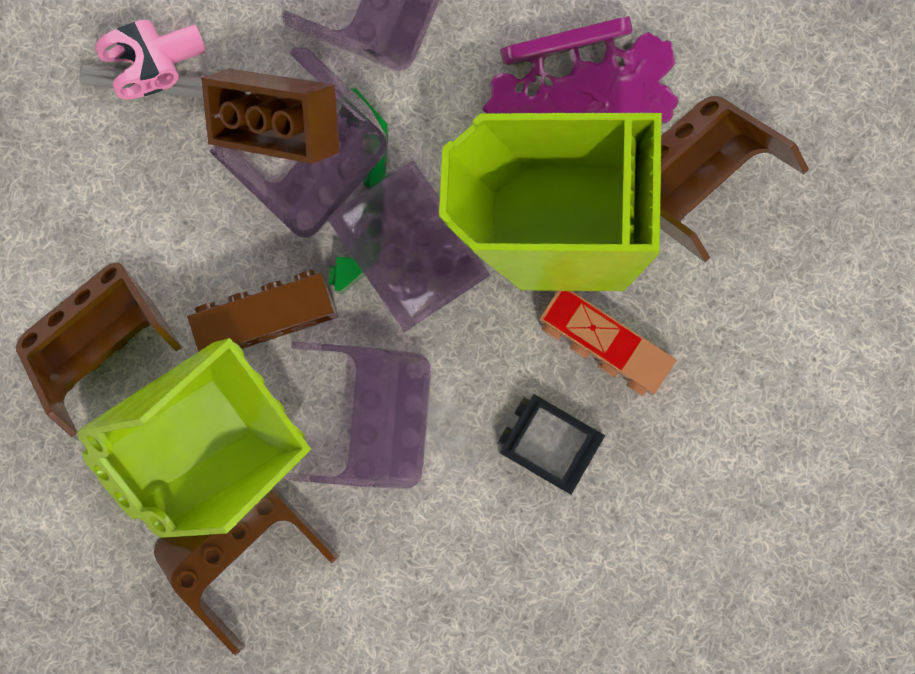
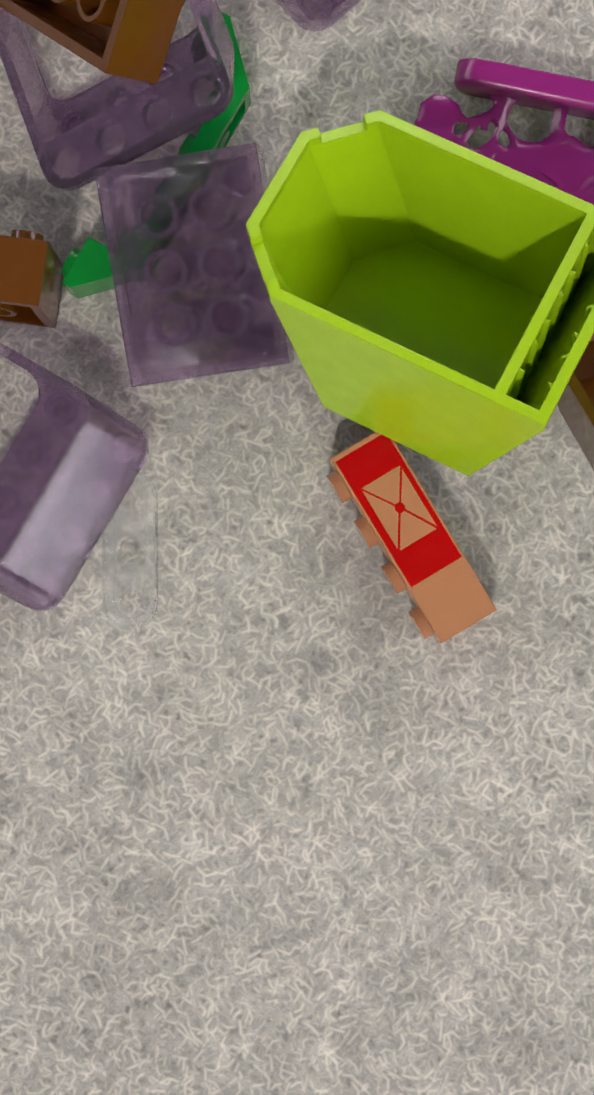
camera: 25 degrees right, 0 degrees up
(550, 443) = (261, 641): window -> none

